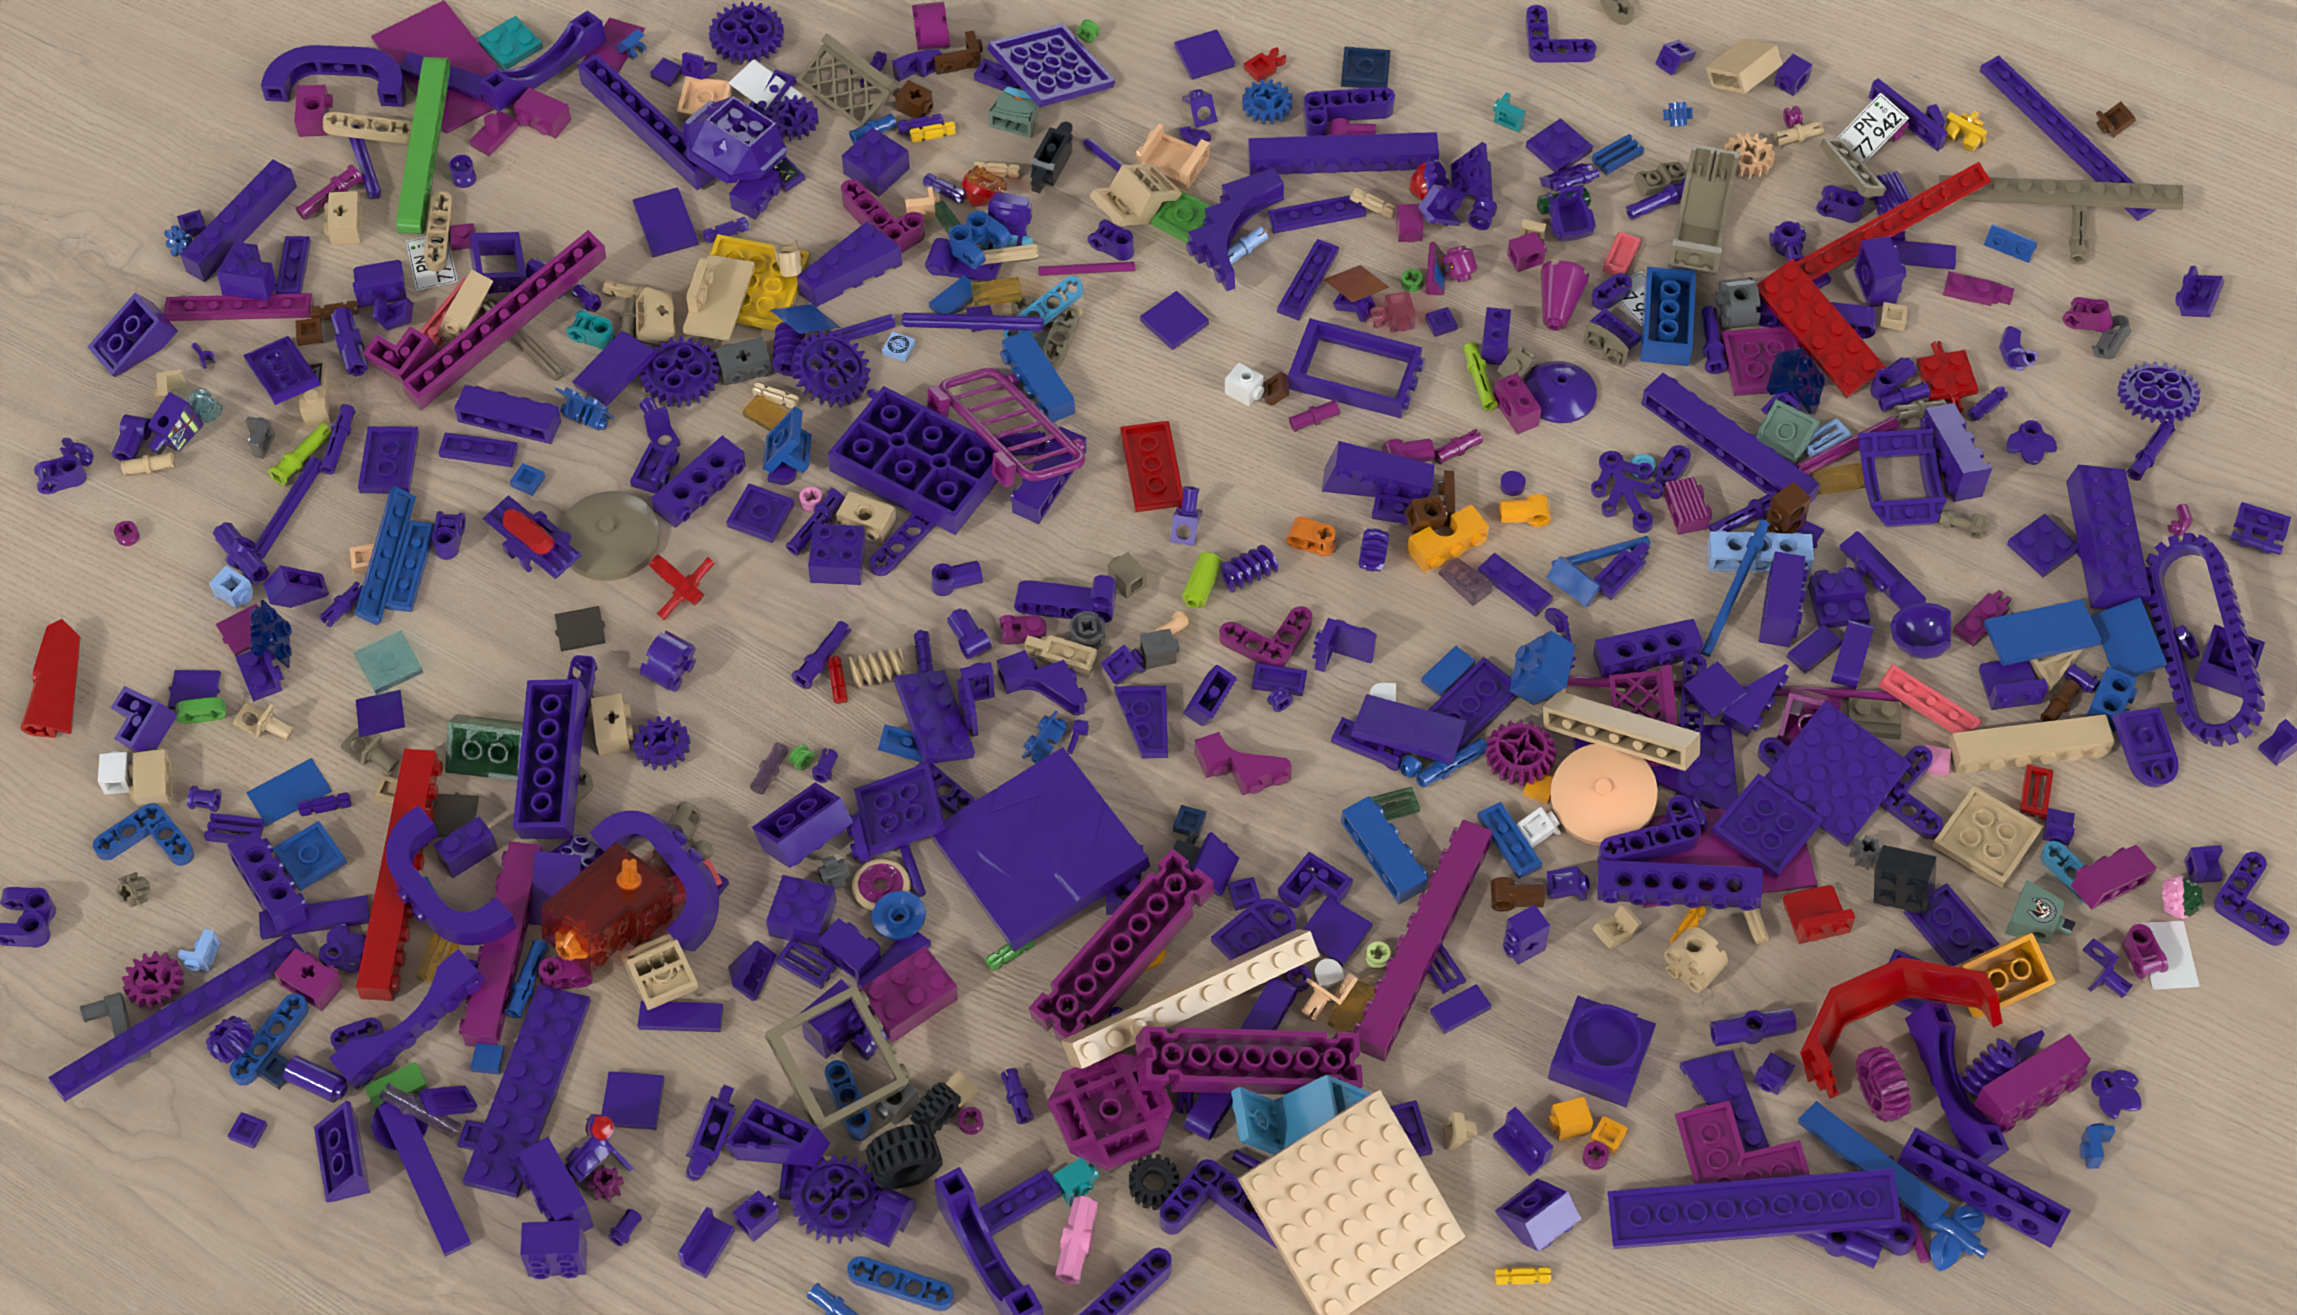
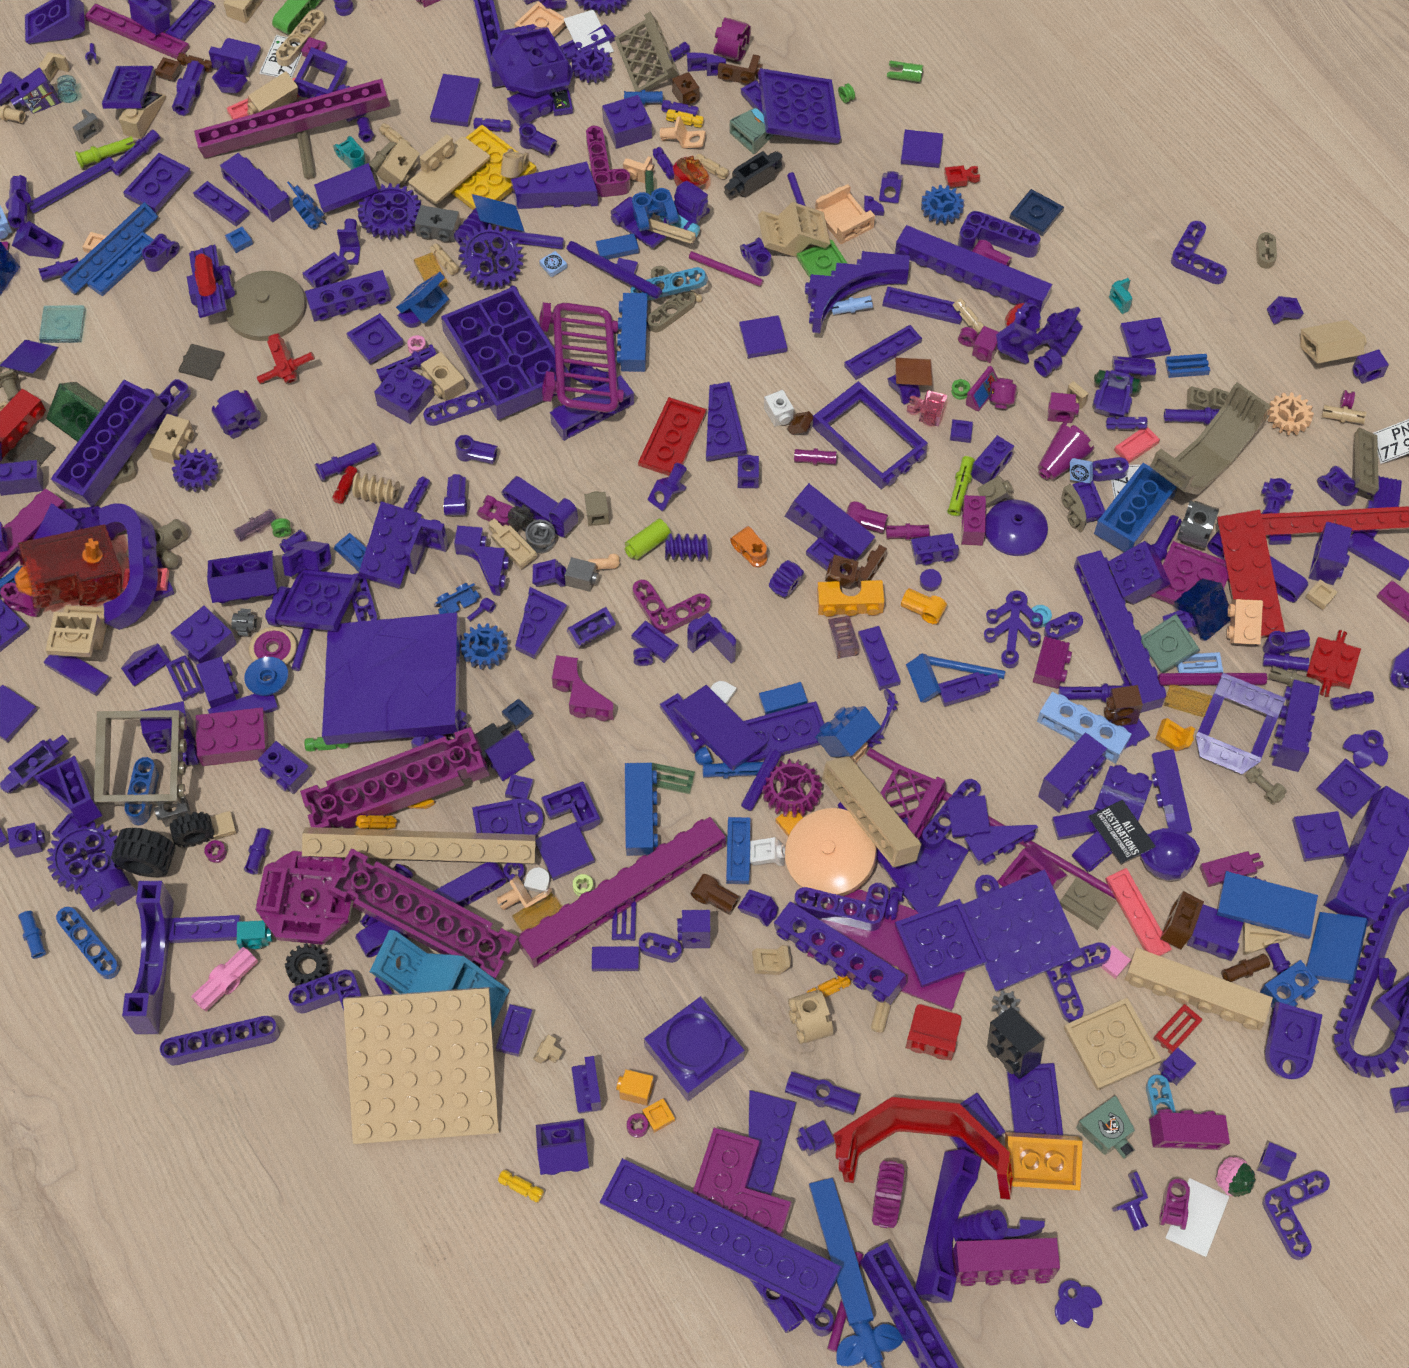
camera: 30 degrees right, 5 degrees up
(404, 357) = (210, 113): magenta brick -> none
(782, 224) = (531, 138): none -> dark purple piece
(854, 771) = (306, 555): none -> dark purple brick
(945, 150) = (680, 133): none -> light nougat bracket
(985, 998) = (284, 768): none -> dark purple brick
(996, 291) = (646, 255): clear yellow tile -> none
(1055, 621) = (519, 517): none -> clear smoke gear
(1110, 772) = (487, 638): none -> blue gear
(1125, 1000) = (376, 822): none -> light orange axle
(1199, 430) = (723, 426): none -> dark purple wing
(1257, 471) = (748, 479): none -> dark purple brick
(1384, 224) = (967, 336): none -> magenta bush
(1486, 760) = (757, 786): none -> dark purple axle
(1496, 450) = (934, 549): none -> dark purple bracket
(1497, 974) = (661, 942): none -> dark purple beam
(1590, 303) = (1081, 470): none -> light blue tile
(1600, 237) = (1126, 423): none -> dark purple axle
(1634, 646) = (936, 749): dark purple brick -> none
(1677, 114) = (1254, 355): blue gear -> none
(1714, 376) = (1139, 572): none -> dark purple brick
(1754, 545) = (1077, 719): blue bar -> none
(1844, 375) = (1245, 621): none -> light nougat bracket
(1850, 518) = (1174, 735): none -> light orange bracket
(1866, 631) = (1121, 831): none -> black sticker
(1976, 686) = (1182, 920): none -> reddish brown brick
(2038, 488) = (1348, 788): none -> dark purple tile
(2091, 1144) = (1023, 1336): blue bracket -> none

